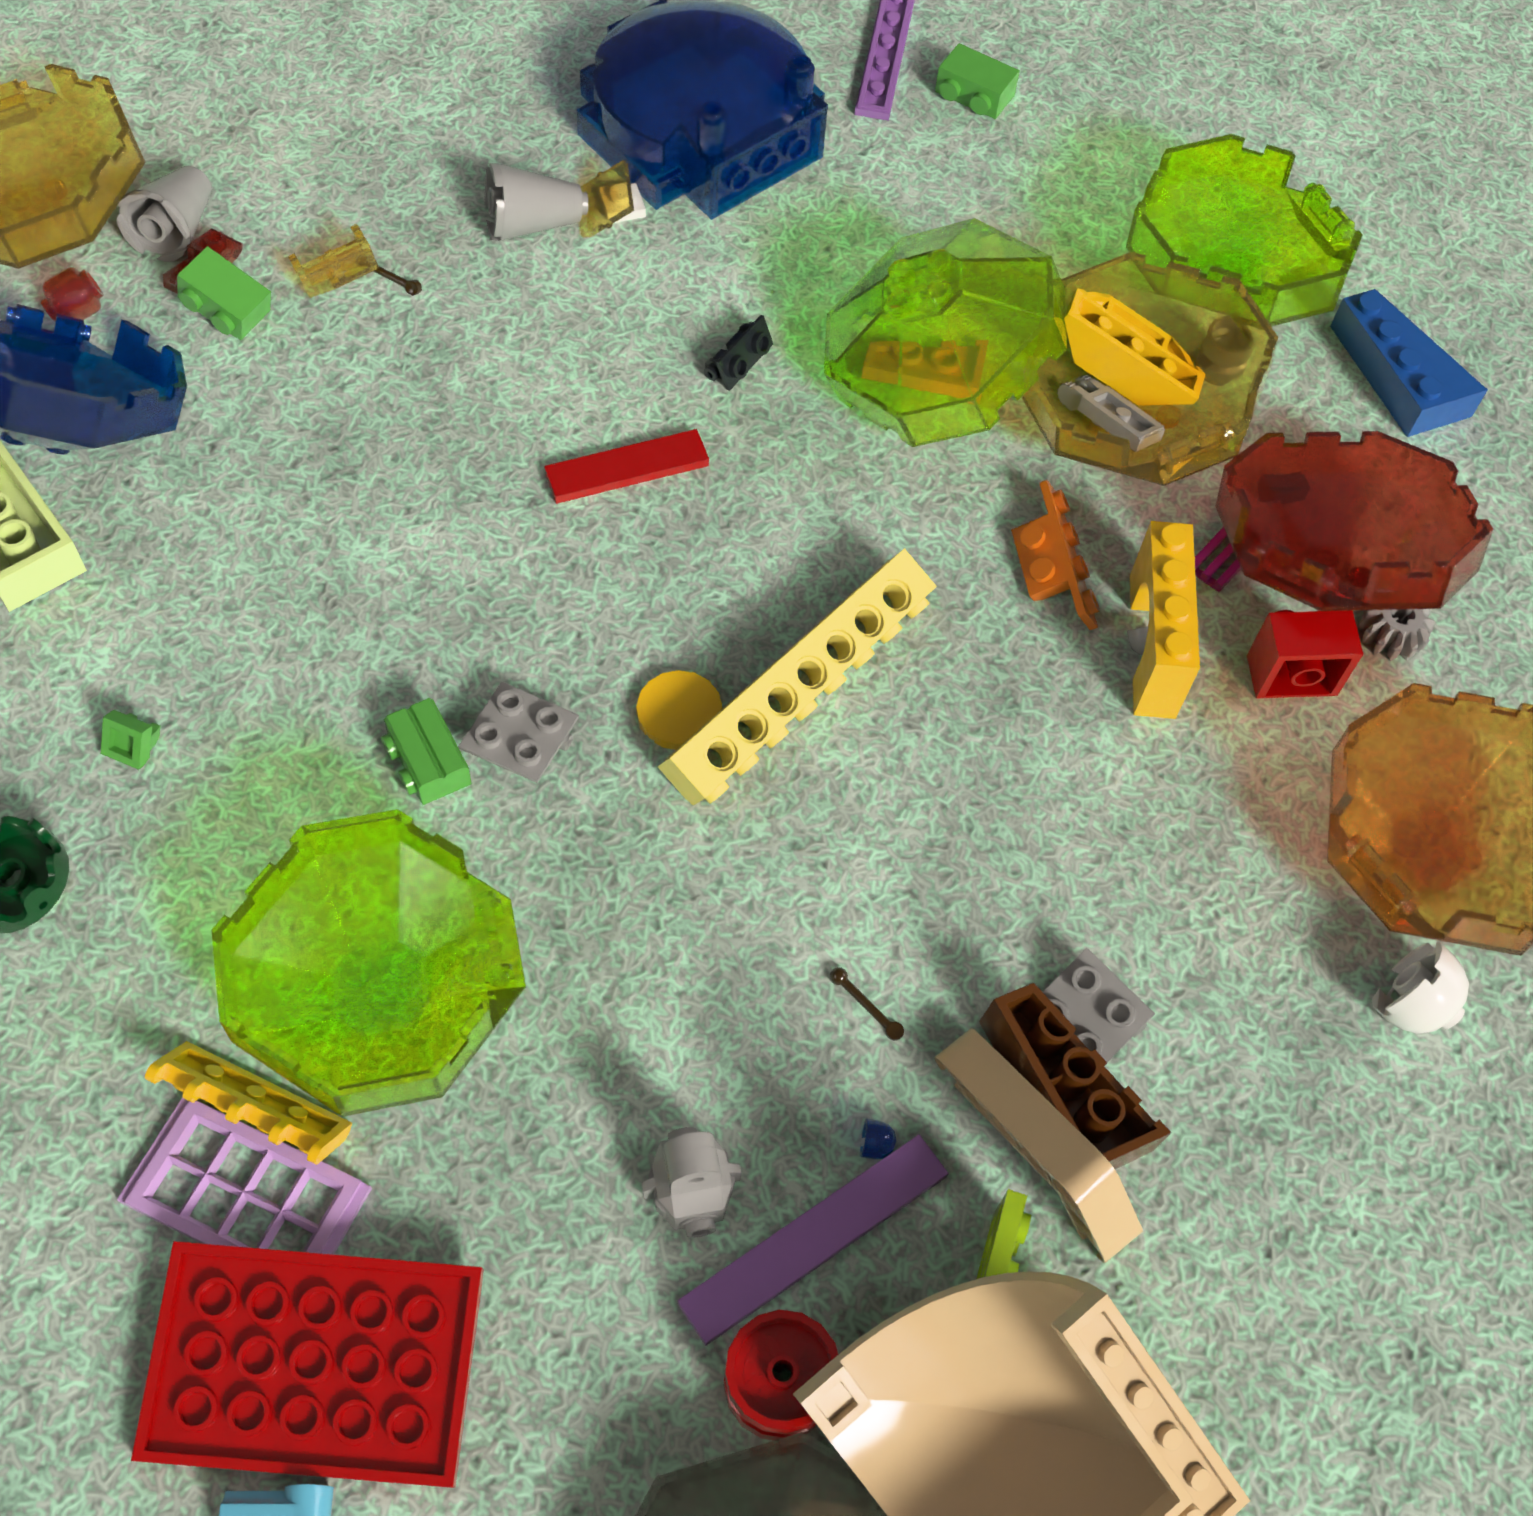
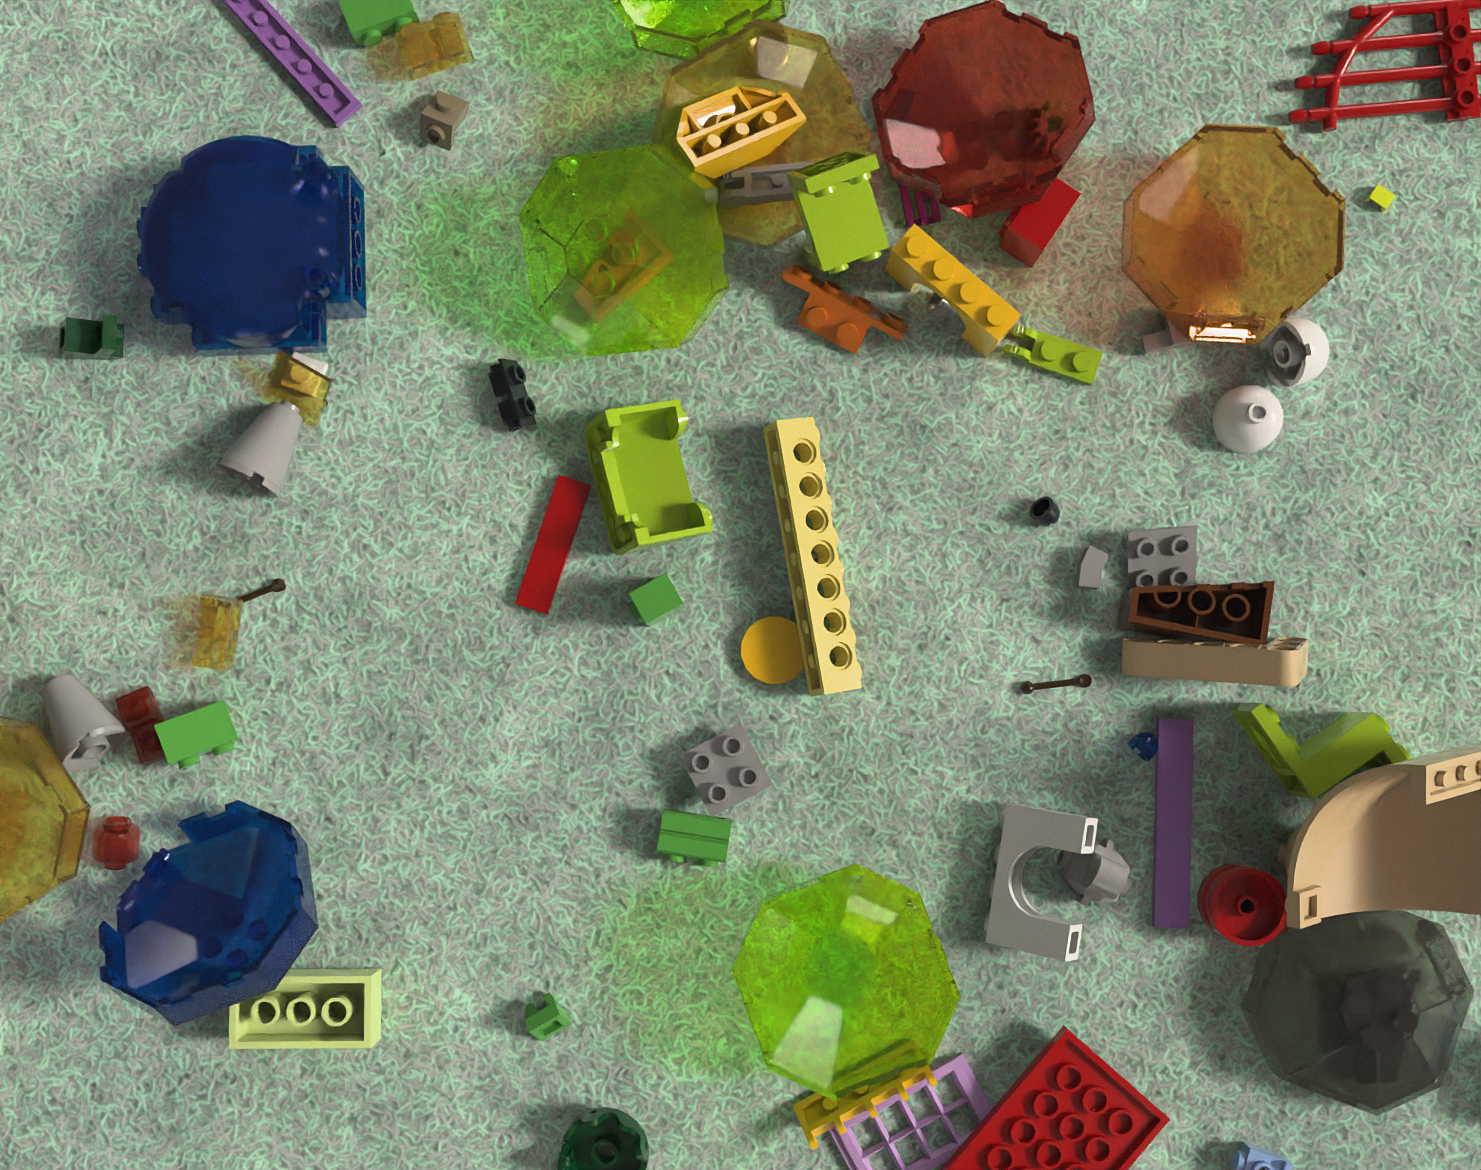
camera: 45 degrees left, 25 degrees up
(525, 47) = (91, 338): none -> dark green brick
(643, 561) = (655, 601): none -> bright green brick
(672, 1072) = (1011, 917): none -> white arch
(759, 491) = (643, 477): none -> lime windscreen
(930, 168) = (442, 119): none -> dark tan bracket
(985, 131) = (434, 45): none -> clear yellow brick
(1017, 949) = (1090, 568): none -> light grey piece
(1034, 866) = (1039, 513): none -> black hinge
(1142, 441) = (839, 210): none -> lime bracket
(1196, 772) = (1056, 355): none -> lime hinge
(1308, 861) = (1163, 340): none -> light grey piece
(1311, 1000) = (1247, 418): none -> white cylinder

